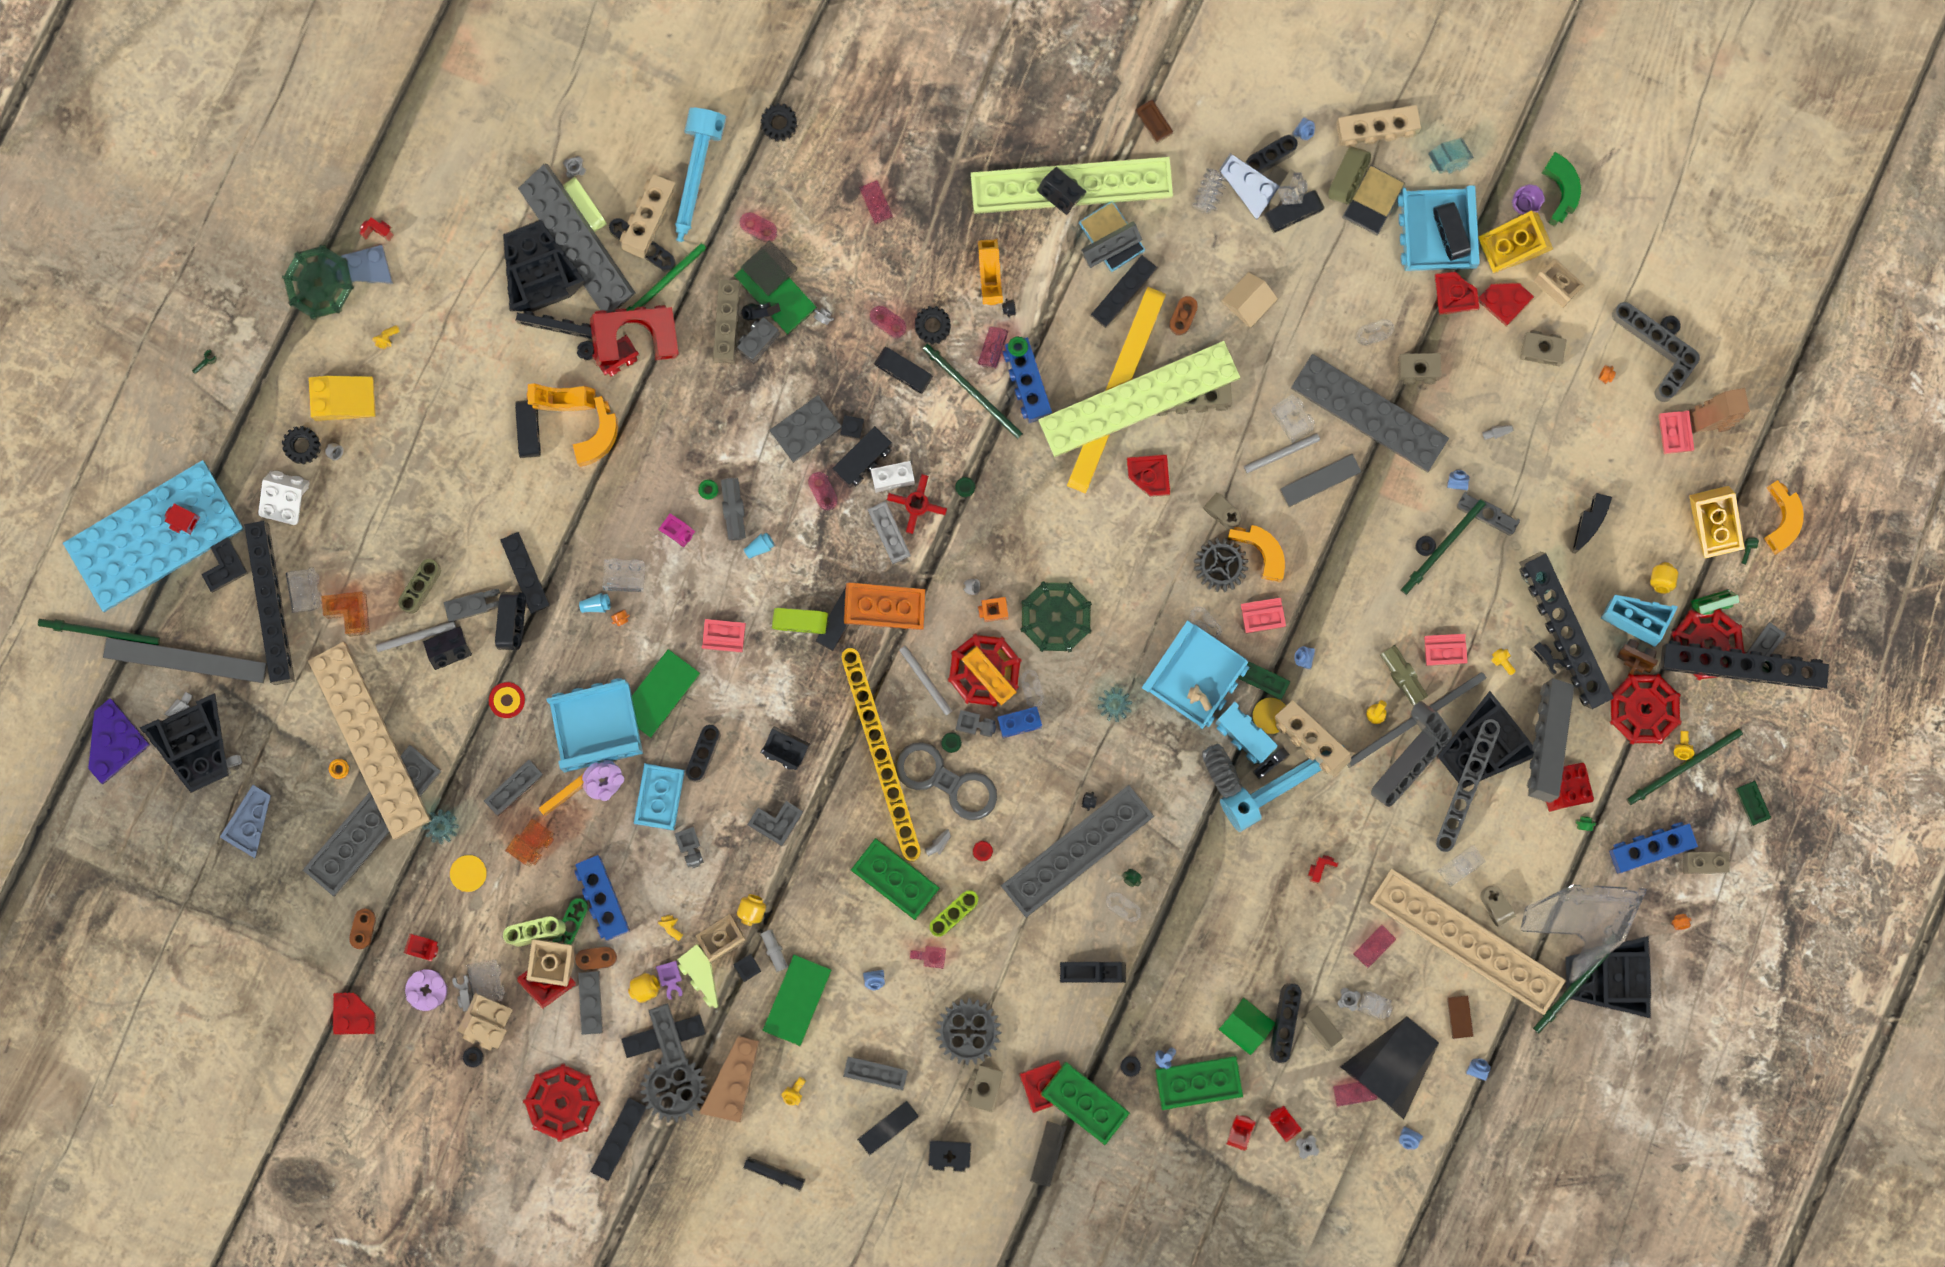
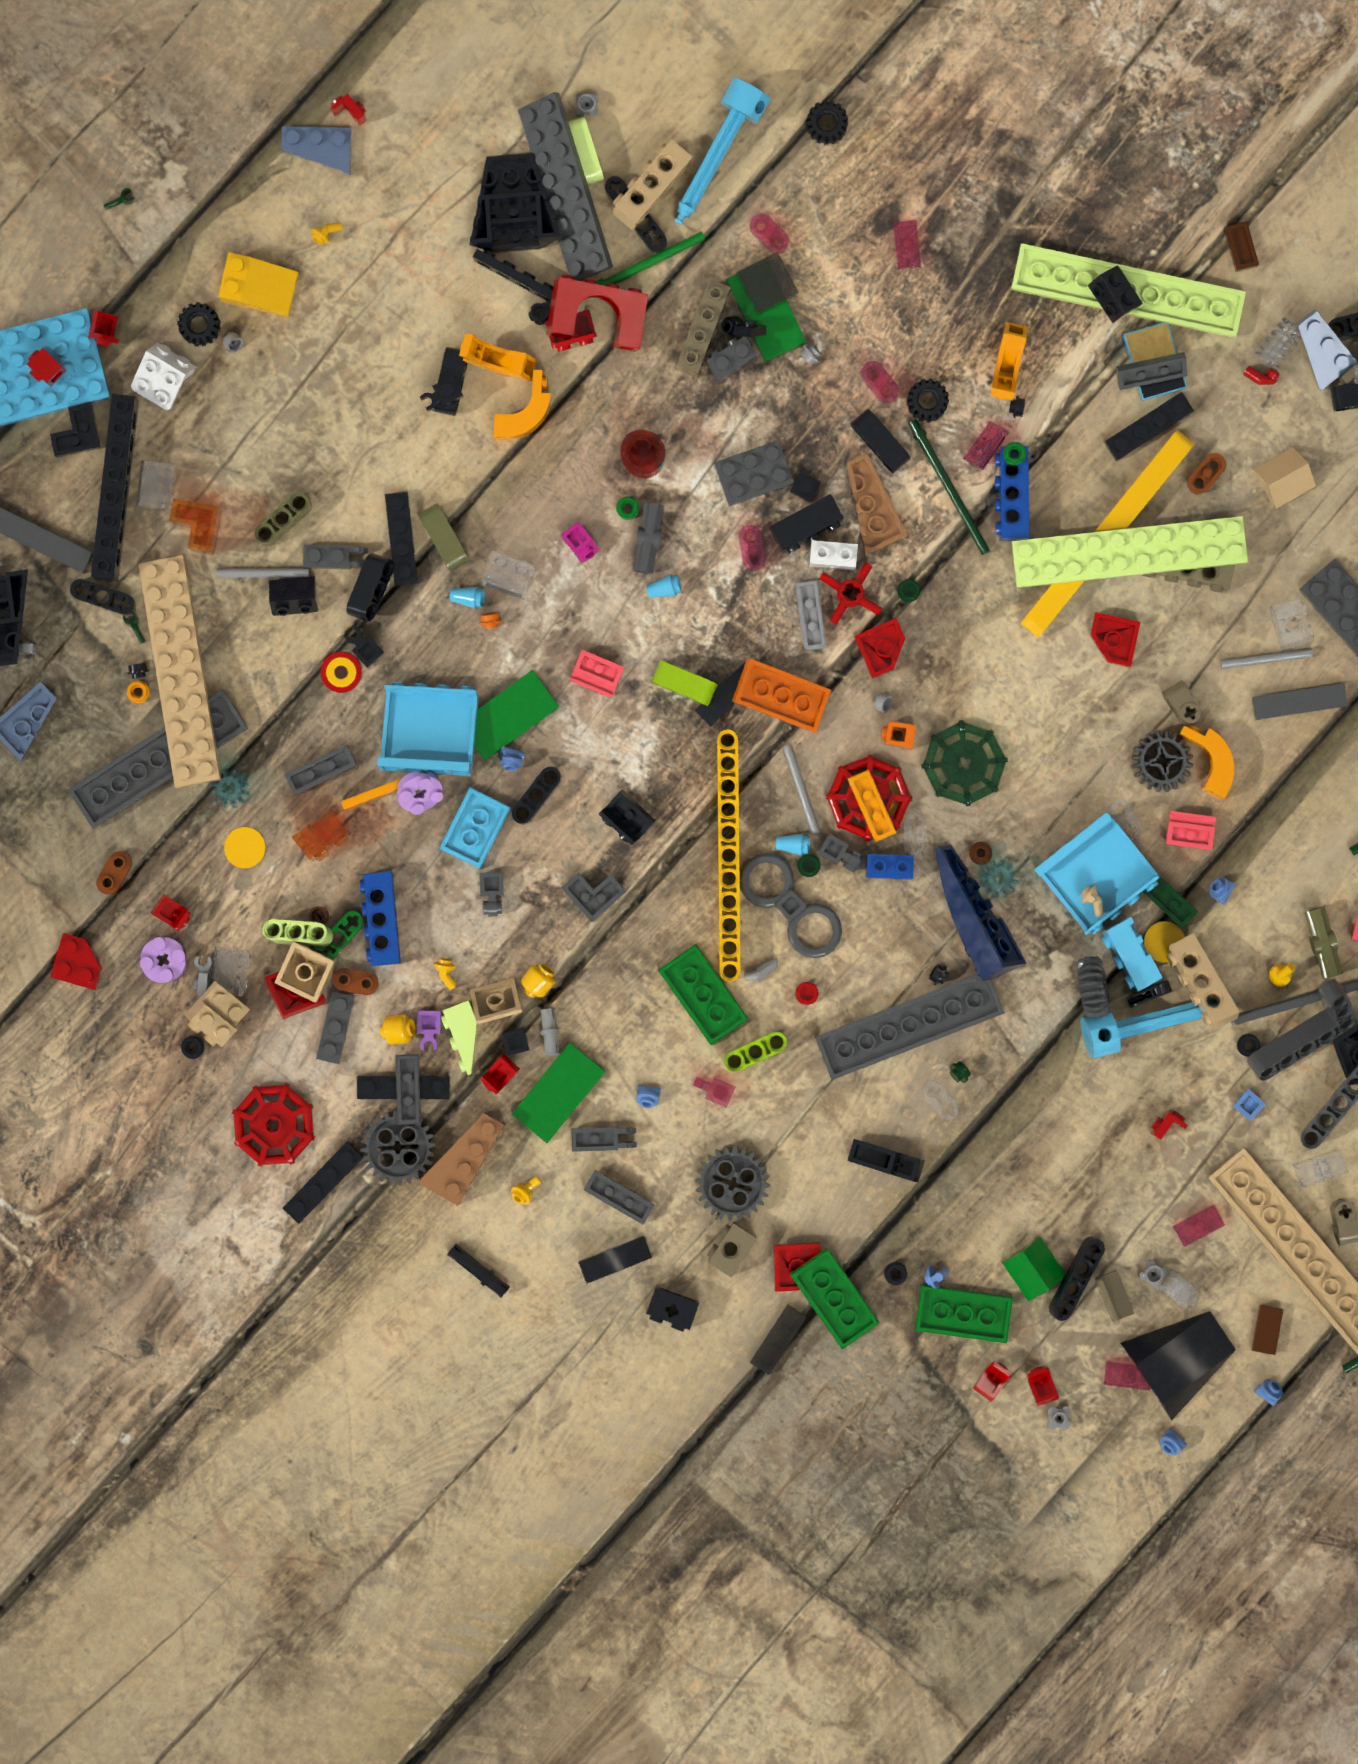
camera: 25 degrees right, 5 degrees up
(221, 472) = (103, 328): none -> red bracket
(271, 692) = (120, 596): none -> black beam
(307, 283) = (256, 149): clear green plate -> none
(318, 712) = (134, 625): none -> dark green hand
(333, 750) = (137, 670): none -> black plate
(522, 673) = (365, 649): none -> black plate
(525, 438) = (445, 392): none -> black plate
(545, 913) = (315, 917): none -> reddish brown hinge
(560, 560) = (443, 537): none -> olive beam
(672, 729) = (511, 758): none -> medium blue plate
(707, 440) = (643, 453): none -> clear red hat
(742, 999) = (499, 1074): none -> red bracket
(844, 1028) = (600, 1138): none -> dark grey hinge
(914, 426) = (874, 509): none -> medium nougat wing
(934, 727) = (796, 844): none -> medium azure cone
(956, 541) = (881, 647): none -> red plate
(1088, 692) = (973, 853): none -> reddish brown plate
(1116, 756) = (983, 935): none -> dark blue wedge
(1212, 221) = (1260, 378): none -> red arm
(1372, 776) = (1248, 1037): none -> black plate
(1384, 830) = (1249, 1104): none -> medium blue plate

